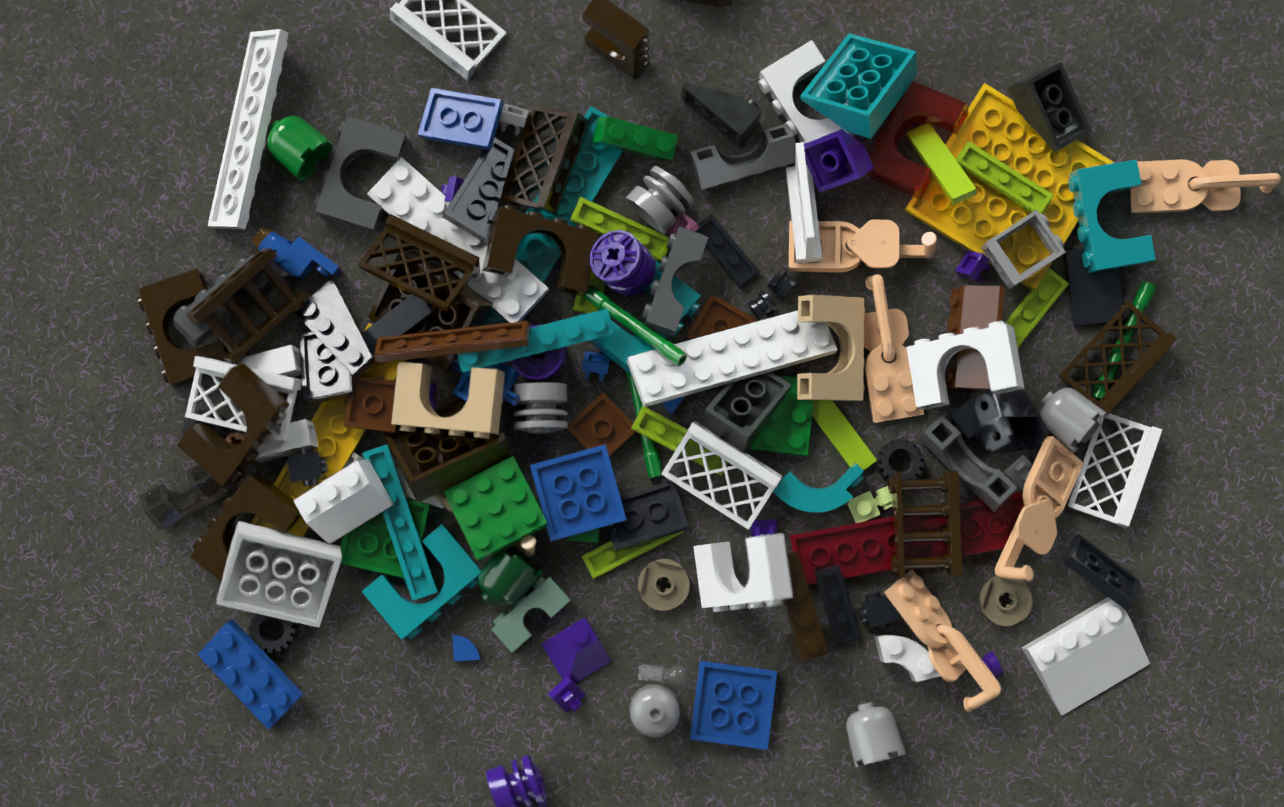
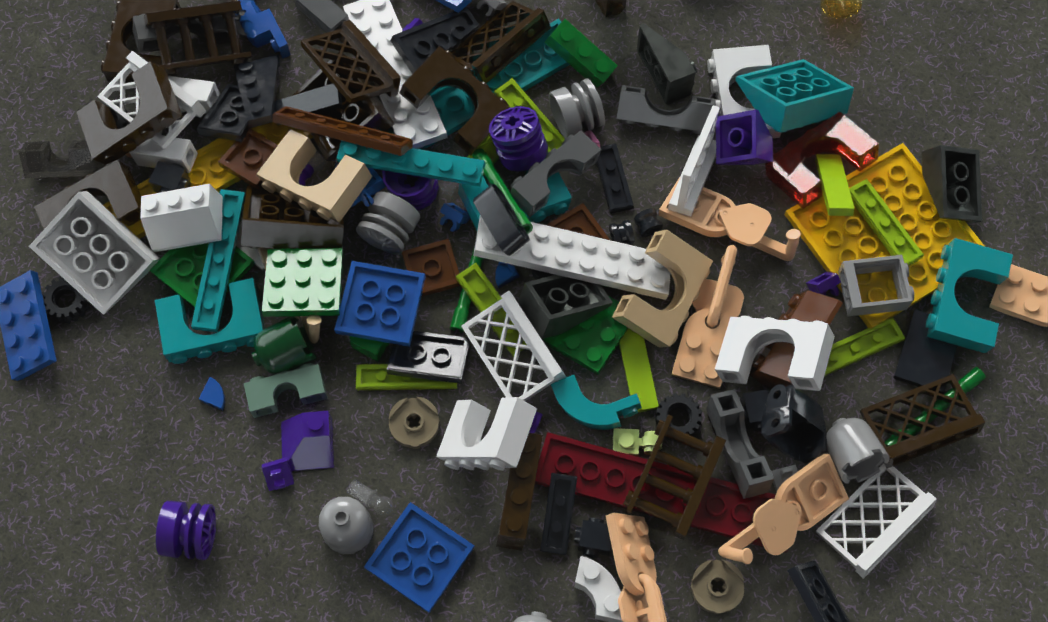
camera: 30 degrees right, 15 degrees down
(656, 364) = (501, 219): none -> black beam

